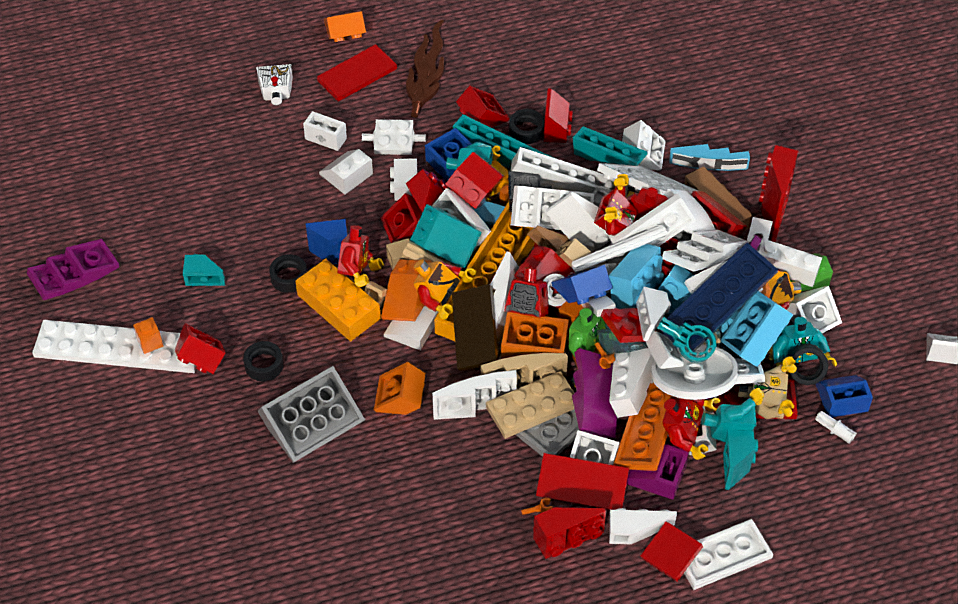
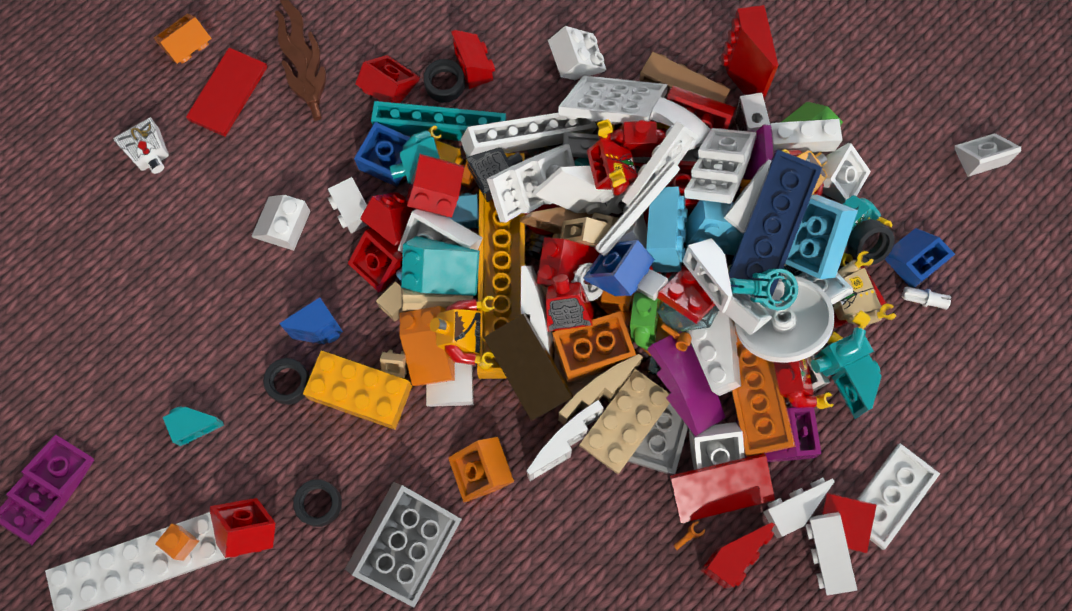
camera: 25 degrees left, 20 degrees up
(325, 131) = (233, 185): white brick -> none
(355, 256) = (352, 337): red torso -> none
(394, 137) = (309, 156): white plate -> none
(603, 148) = (542, 76): teal slope -> none
(645, 563) = (831, 554): none -> white brick
(713, 159) = (645, 38): slope -> none

